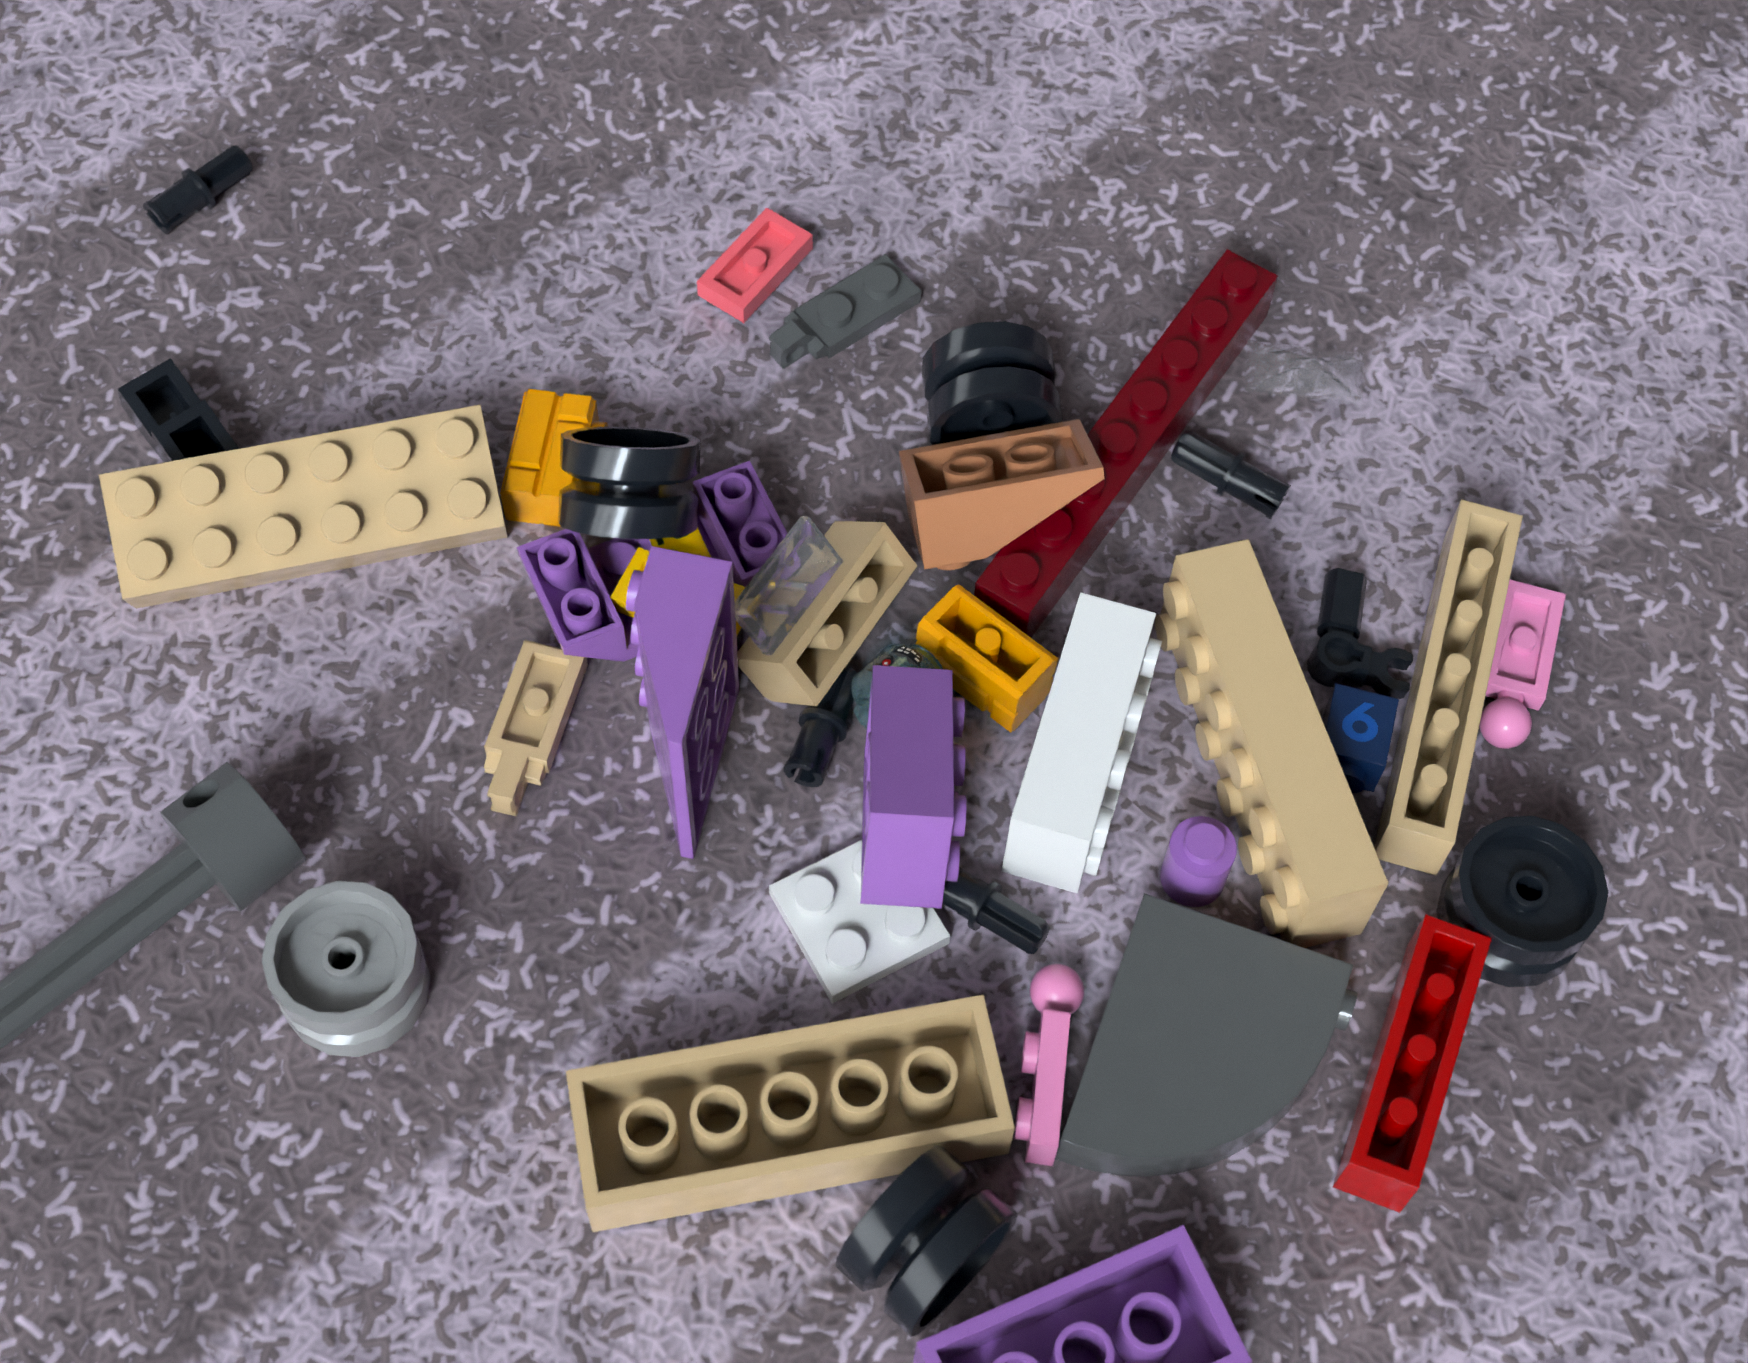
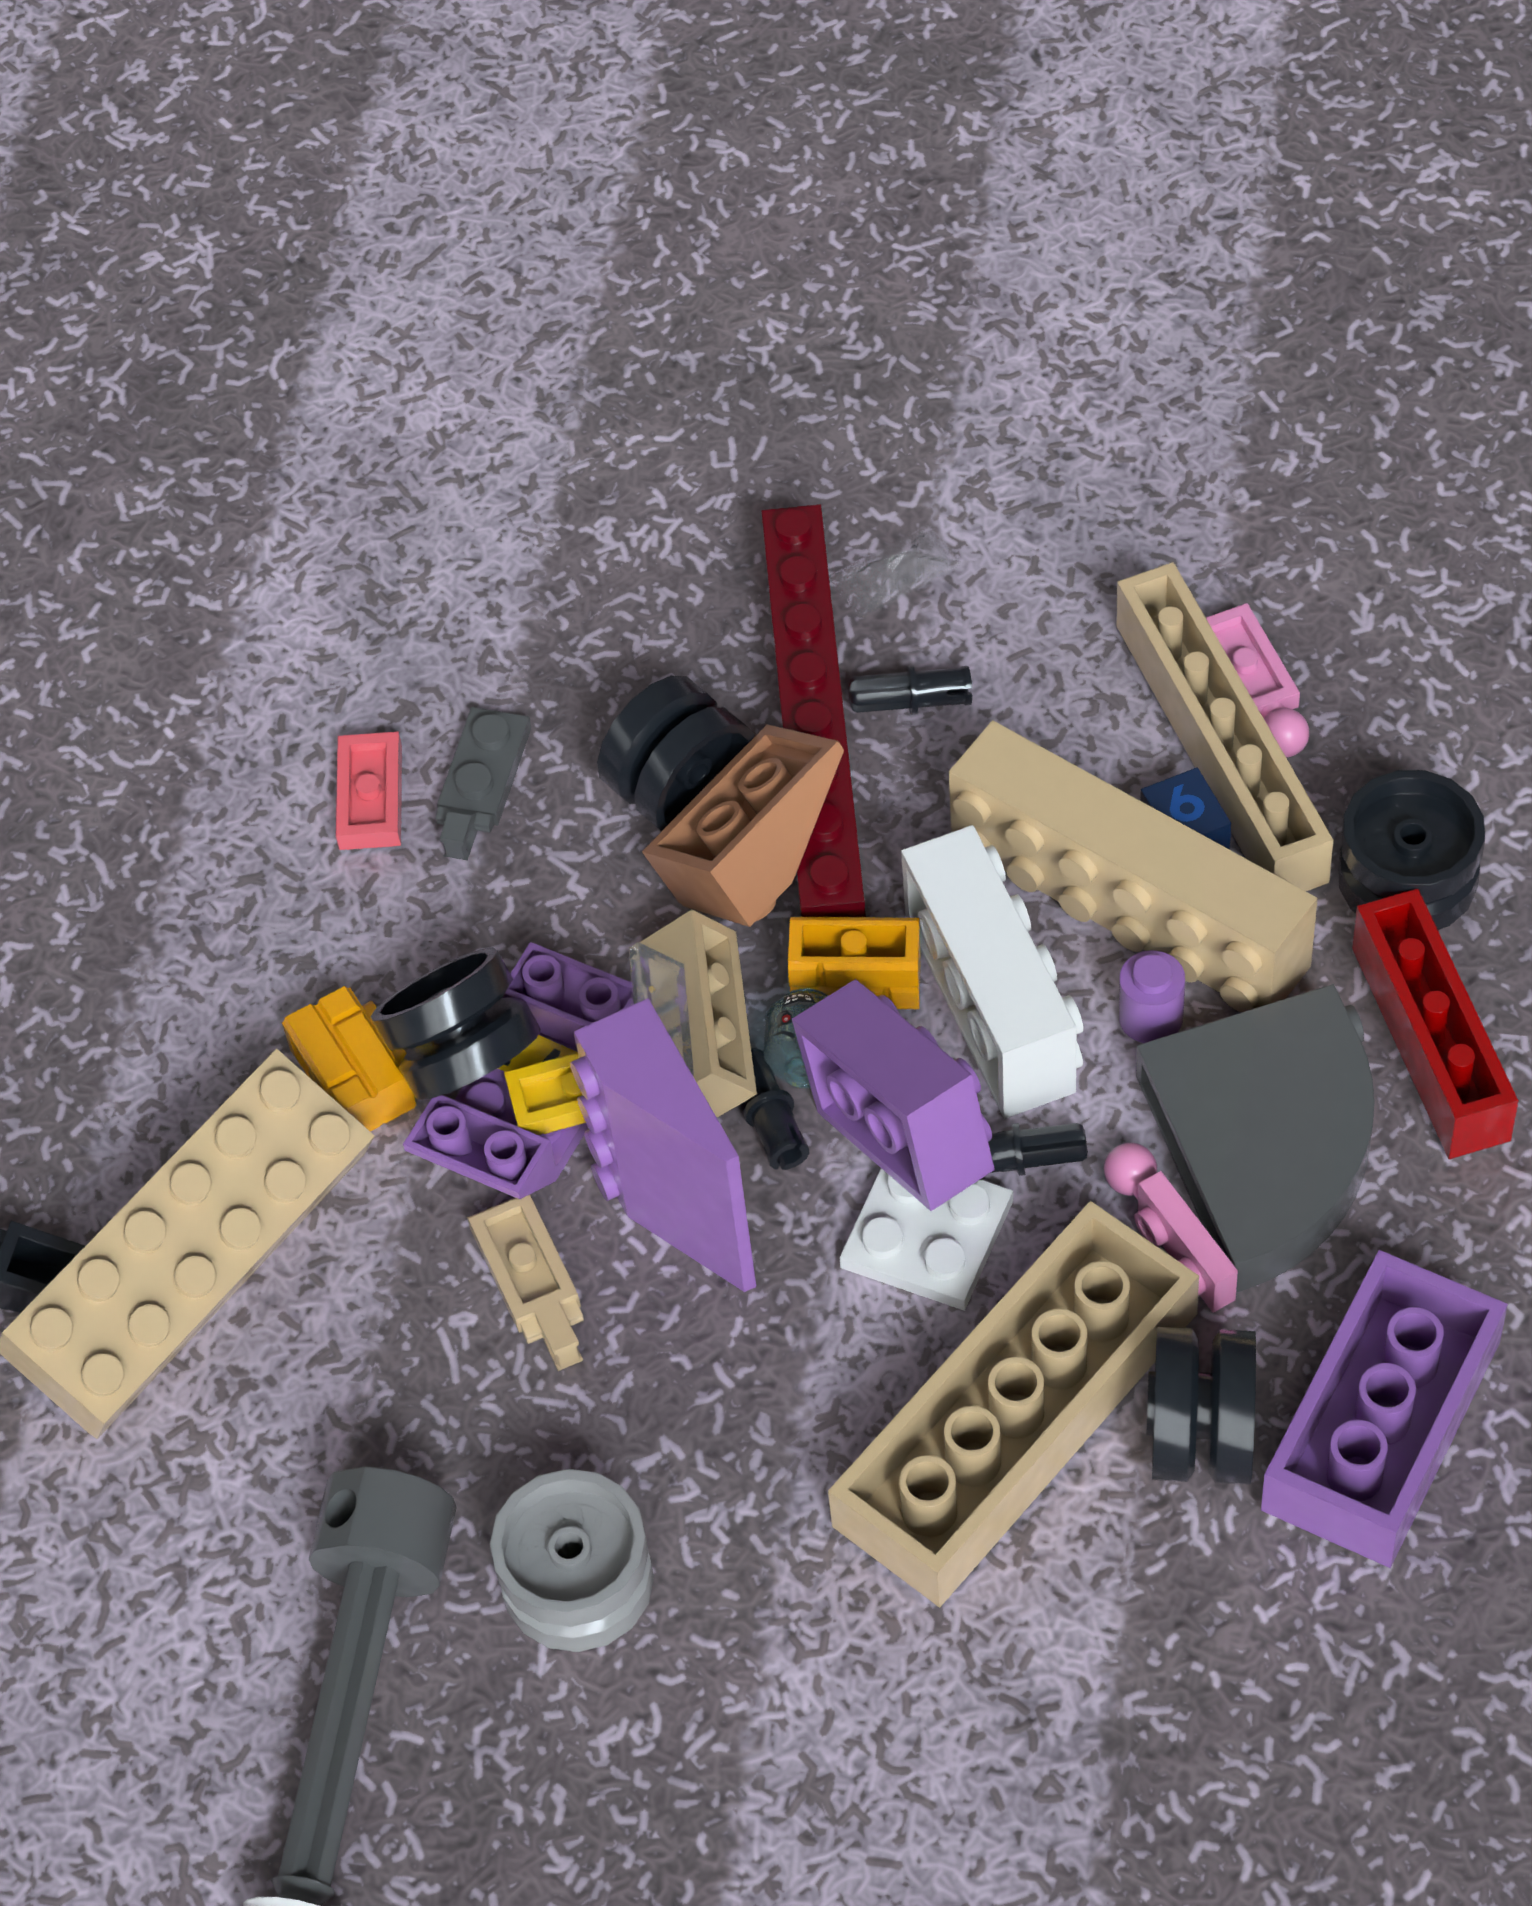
camera: 30 degrees left, 5 degrees down
(1339, 654) = (1101, 751): black bar -> none

